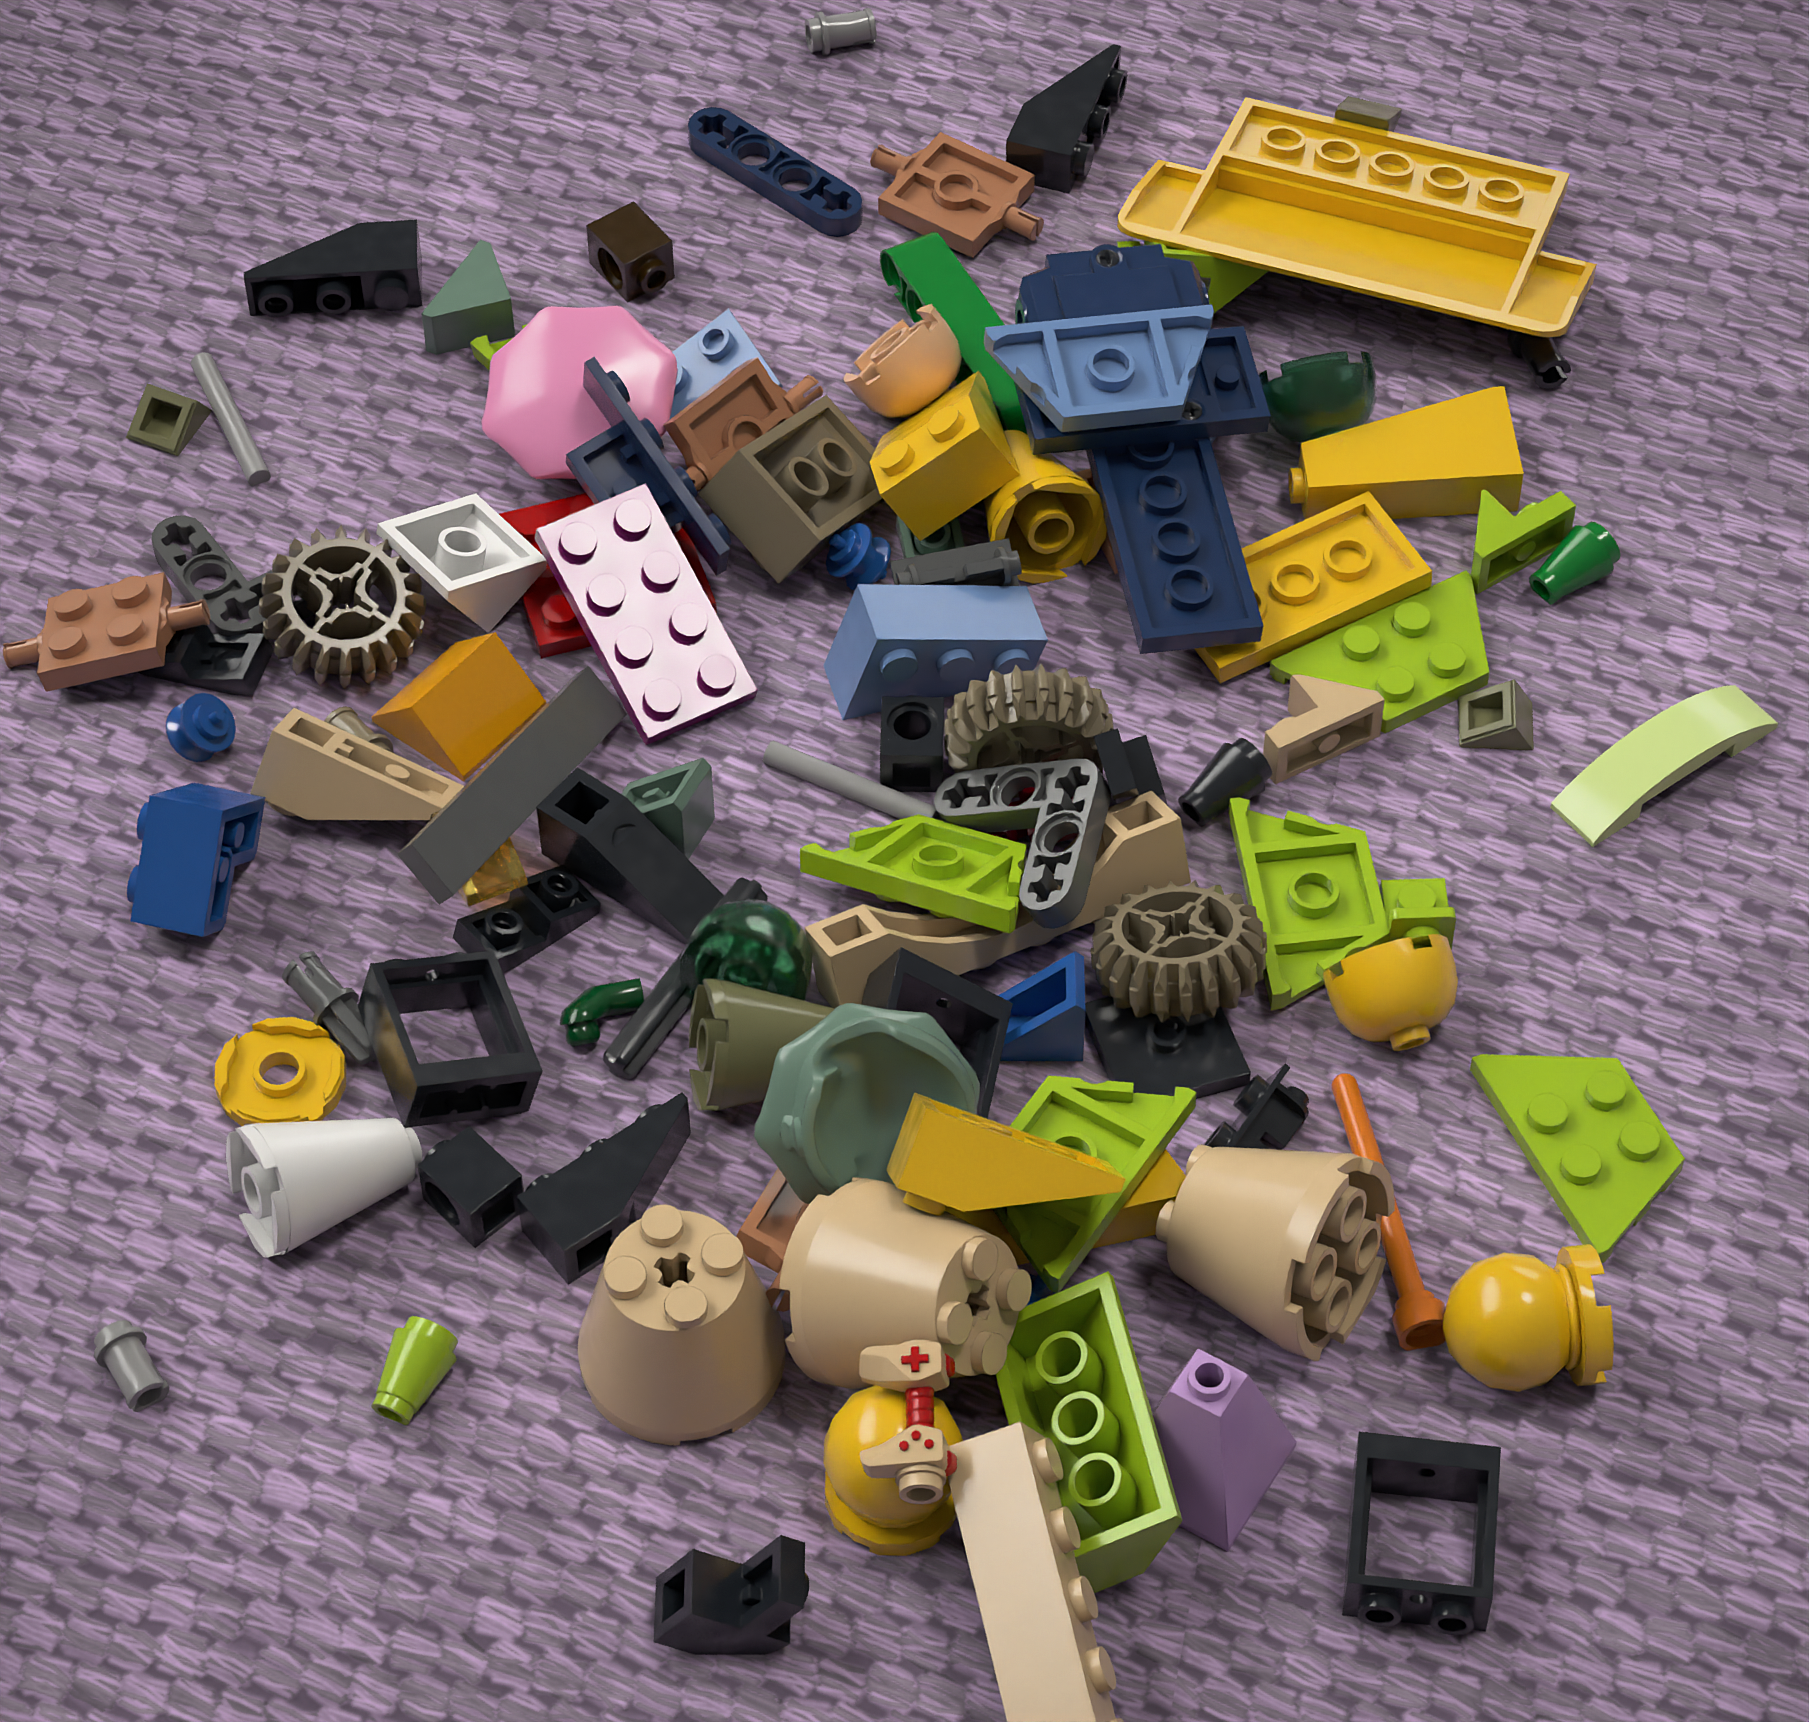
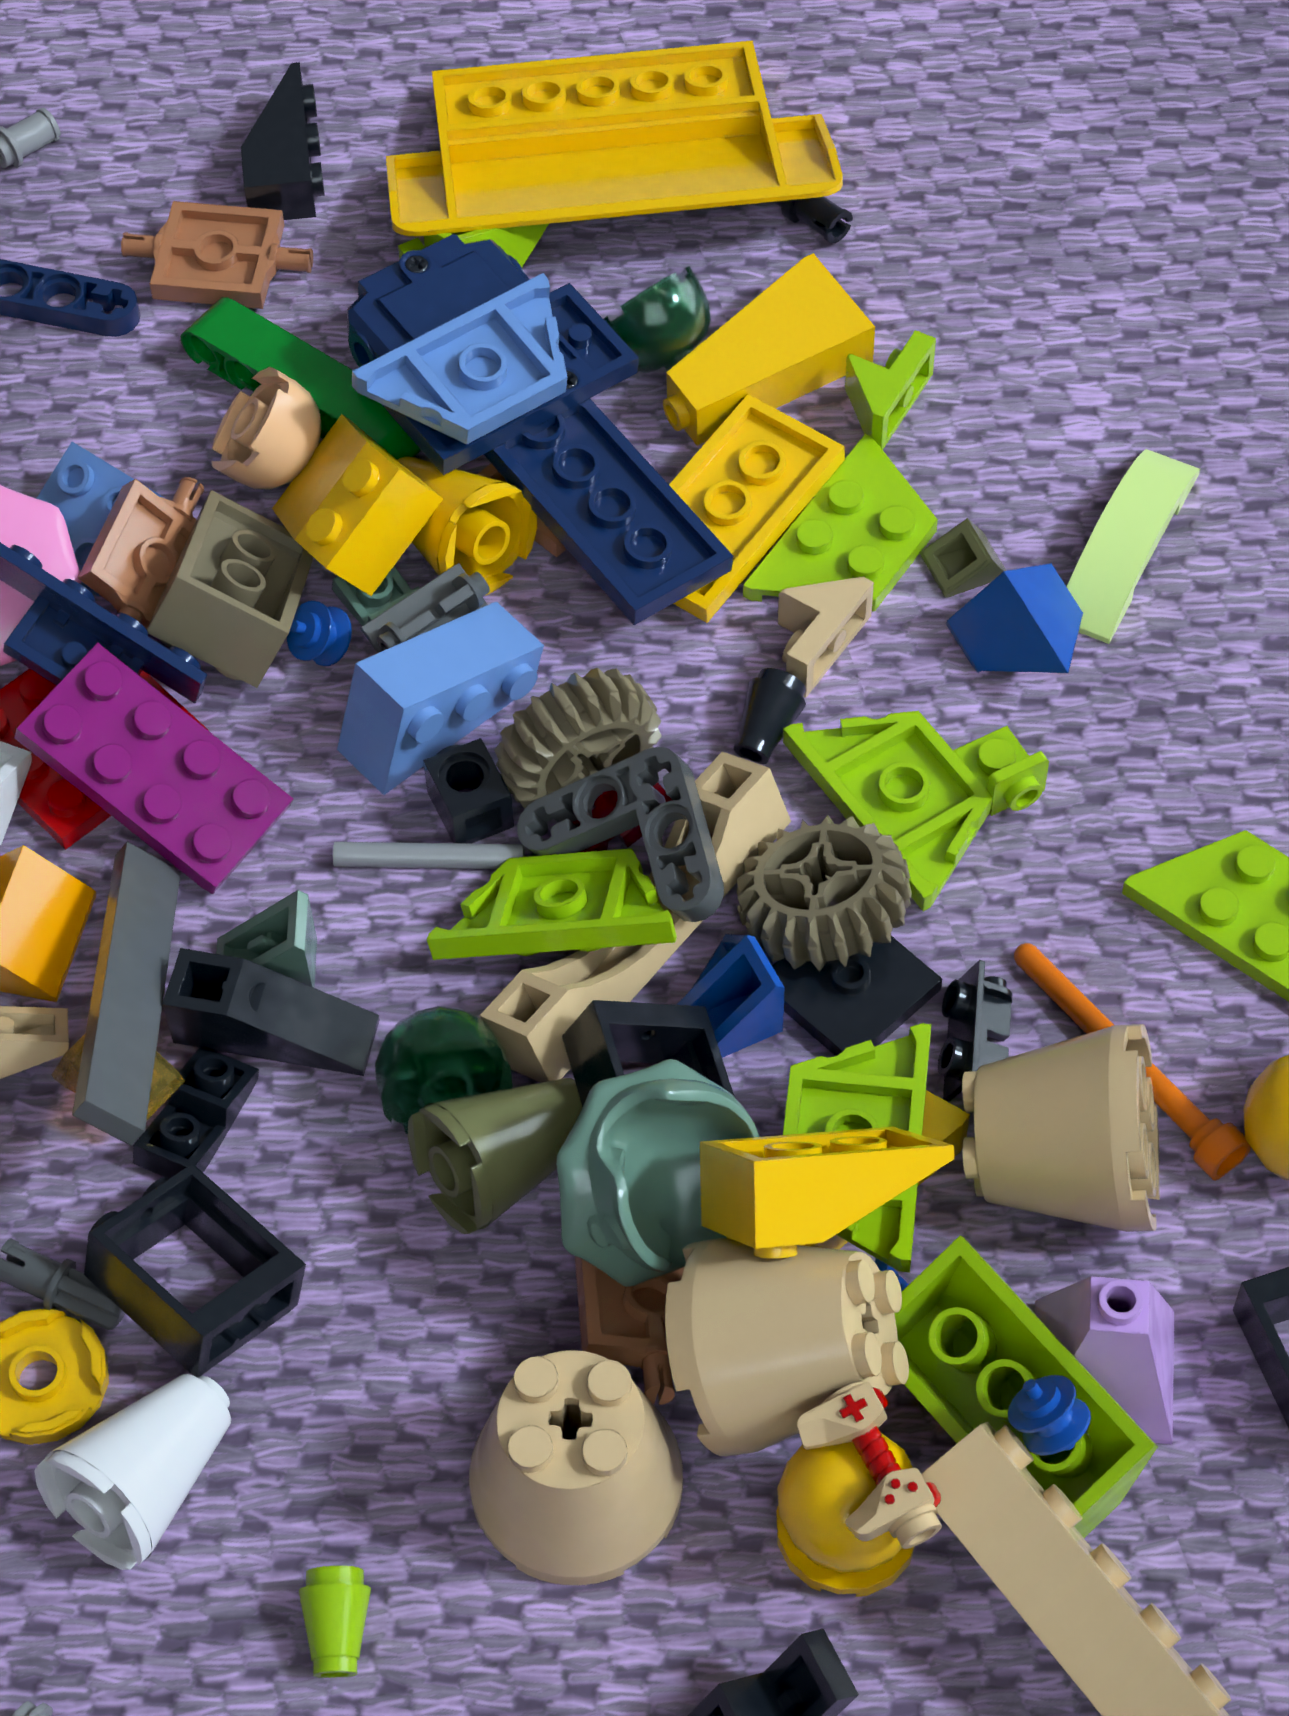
camera: 25 degrees left, 5 degrees up
(470, 1185) = (291, 1407): black brick -> none
(599, 1002) = (307, 1174): dark green arm -> none
(605, 1190) = (419, 1372): black slope -> none
(663, 1005) = (375, 1133): black axle -> none
(1094, 1447) = (1049, 1415): none -> blue wheel
(1128, 766) = (691, 737): black slope -> none
(1368, 113) = (545, 48): olive slope -> none
(1395, 991) = (1034, 852): yellow cylinder -> none
(1510, 788) = (1019, 623): none -> blue slope
(1577, 561) = (955, 388): green cone -> none

